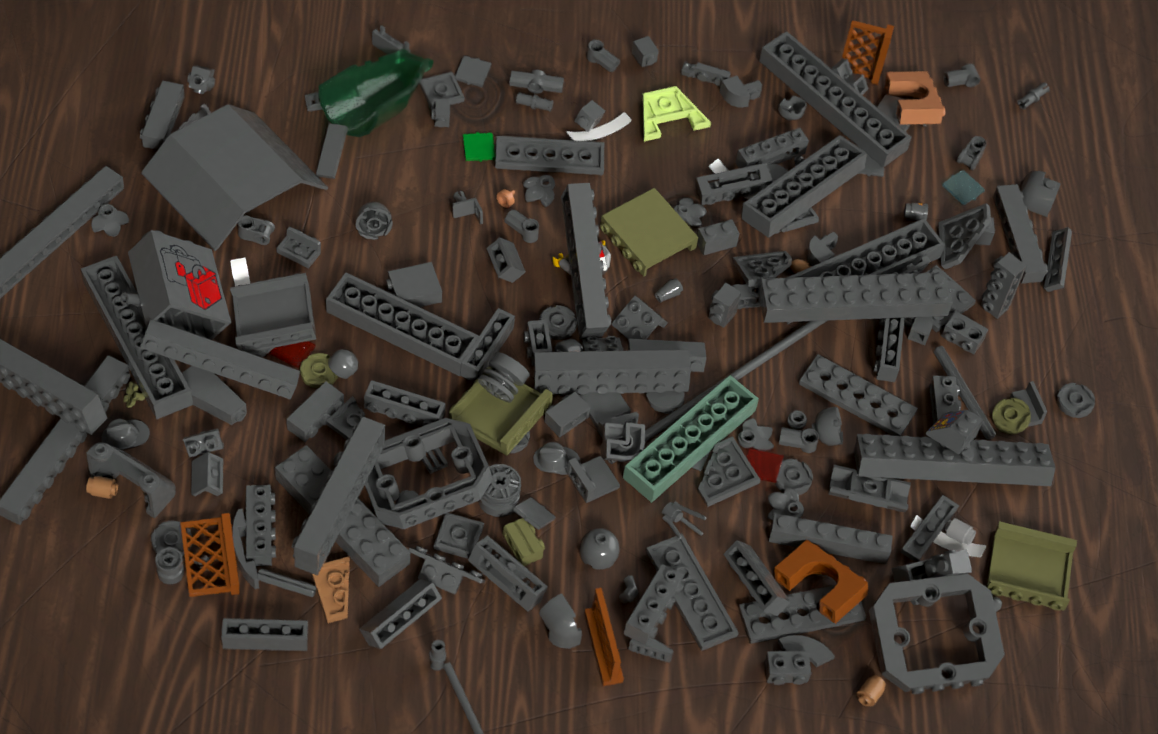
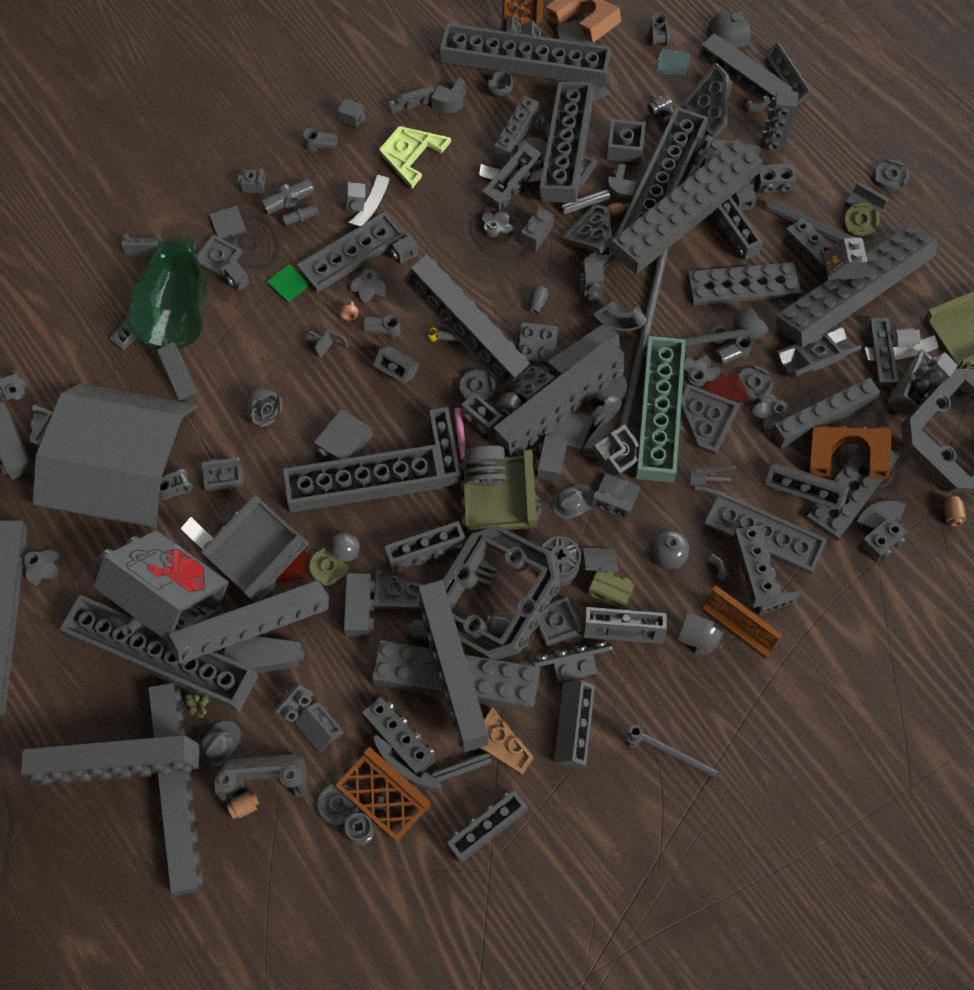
camera: 30 degrees left, 10 degrees up
(515, 342) = (460, 432): none -> bright pink bar
(519, 52) = (252, 181): none -> dark grey brick
(596, 179) = (404, 249): none -> dark grey brick
(647, 230) = (483, 260): olive panel -> none
(647, 407) = (608, 410): none -> dark grey tile
(722, 348) = (620, 318): none -> dark grey brick
(781, 244) = (586, 201): none -> dark grey axle
(788, 416) = (716, 337): none -> dark grey bar
(857, 218) = (626, 140): none -> dark grey brick

